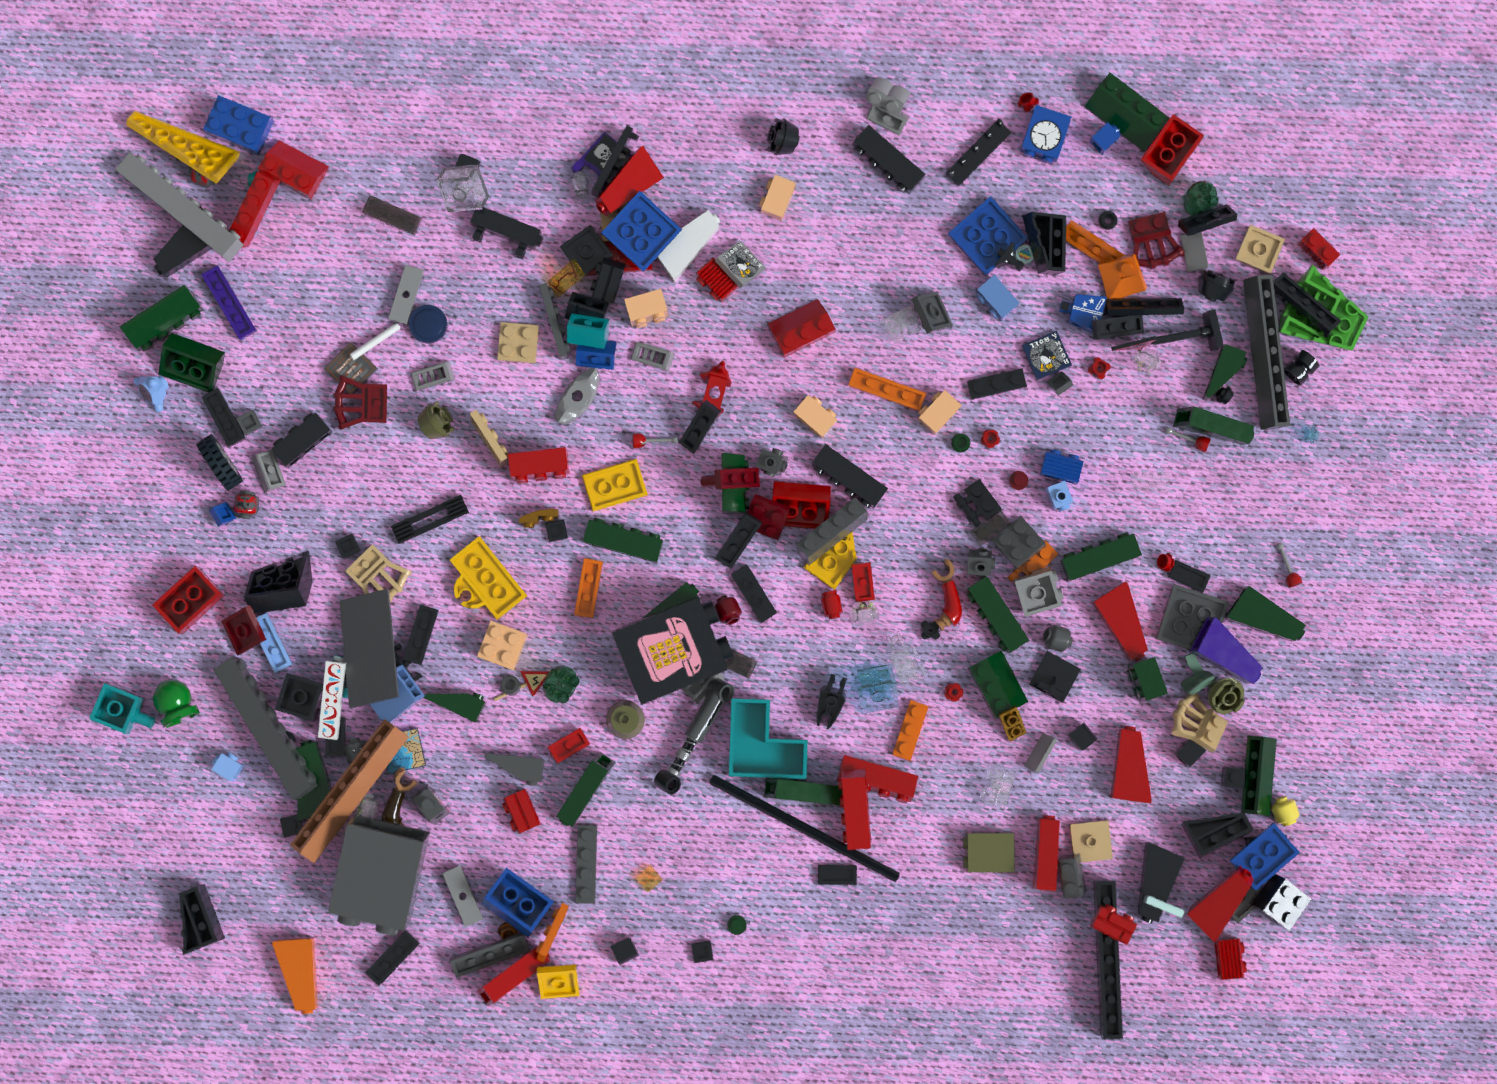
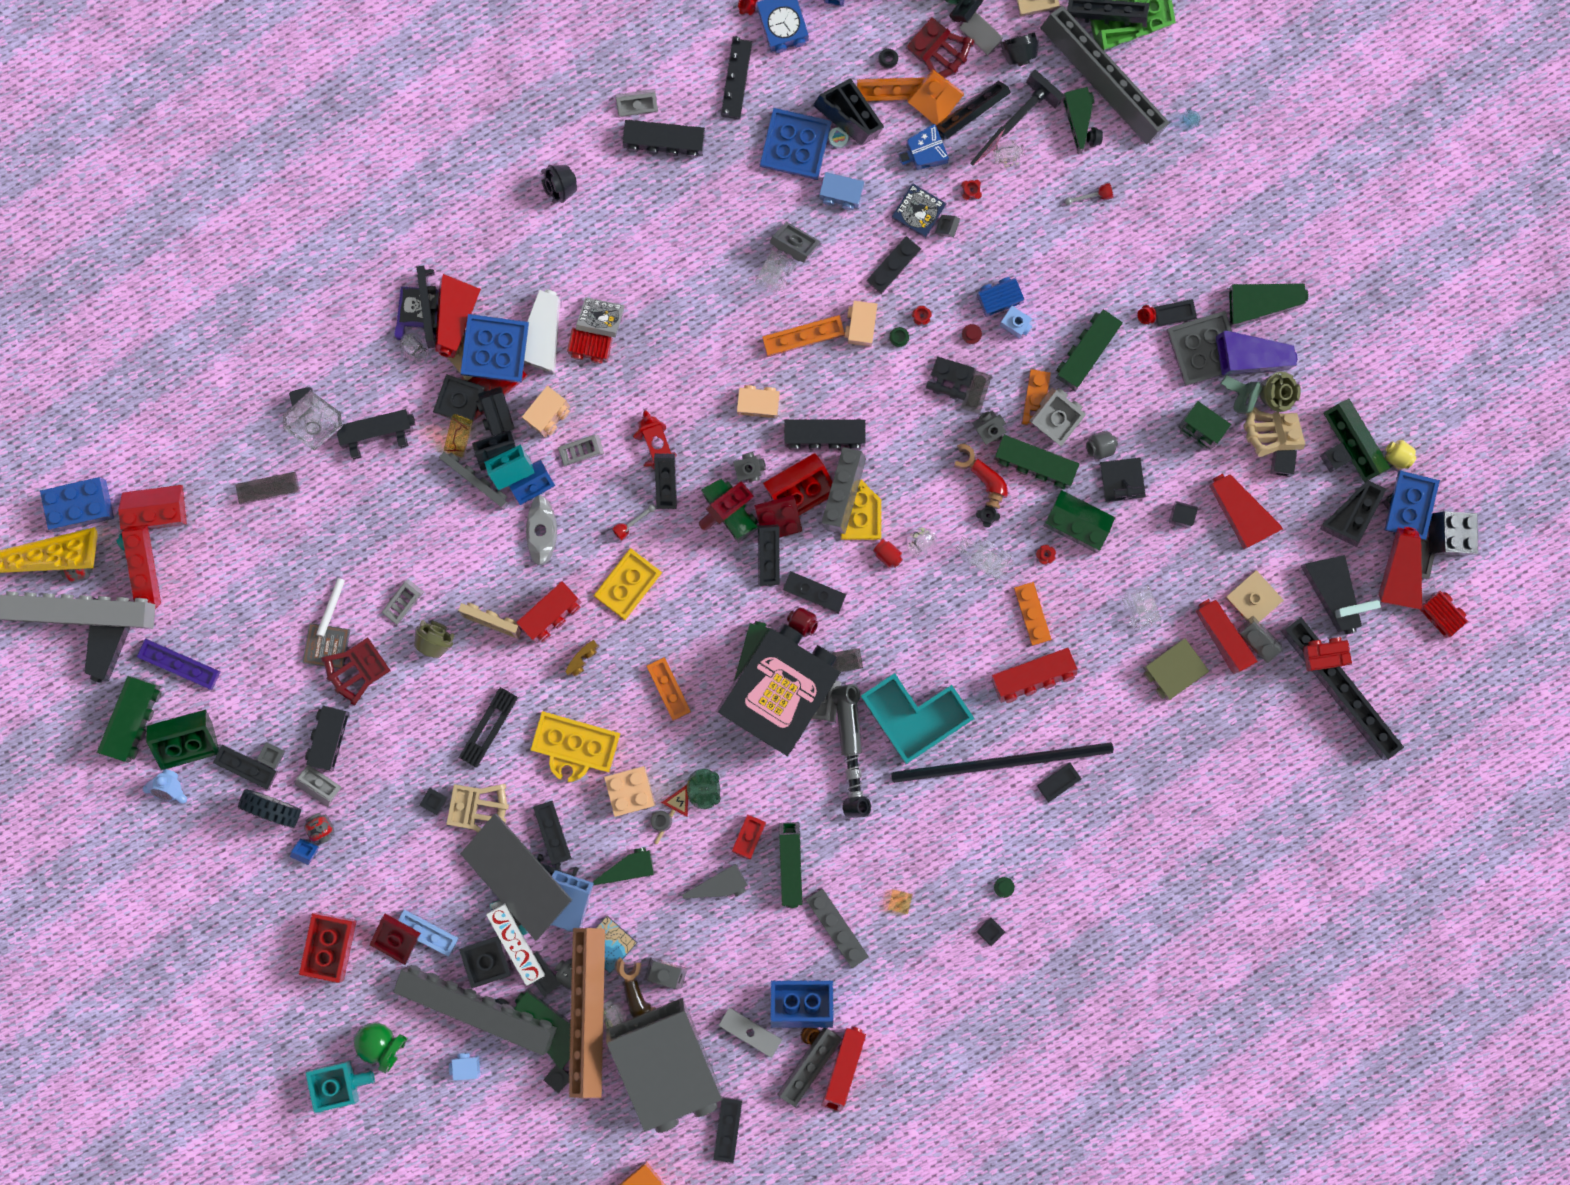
camera: 25 degrees left, 0 degrees up
(281, 586) = (399, 878): black wedge -> none
(409, 283) = (325, 536): light grey tile -> none
(428, 324) = (366, 560): dark blue piece -> none
(518, 342) = (456, 520): tan plate -> none
(522, 811) = (749, 923): red brick -> none
(551, 932) = (849, 1008): orange plate -> none
(556, 530) = (605, 659): black tile -> none
(558, 981) = (886, 1047): yellow plate -> none
(622, 540) = (670, 626): dark green brick -> none
(624, 950) = (923, 978): black piece -> none
(625, 719) = (781, 779): olive cone -> none
(778, 197) = (591, 237): light nougat brick -> none
(801, 328) = (692, 334): red slope -> none
(802, 791) = (979, 731): dark green slope -> none
(831, 699) = (947, 636): black hinge -> none
(856, 809) = (1036, 714): red brick -> none
(863, 581) = (901, 515): red plate -> none
(876, 688) = (978, 598): clear light blue slope -> none
(886, 95) = (623, 83): light grey brick -> none
(1008, 258) = (828, 150): black piece -> none
(1012, 723) = (1116, 545): pearl gold slope -> none
(1018, 542) = (1010, 386): dark grey plate -> none
(1040, 752) = (1157, 553): light grey slope -> none
(1117, 326) = (962, 142): black plate -> none
(1121, 618) = (1145, 390): red slope -> none
(1213, 425) = (1104, 169): dark green slope -> none
(1293, 579) = (1264, 252): hinge -> none
(1301, 367) = (1143, 67): black wheel -> none

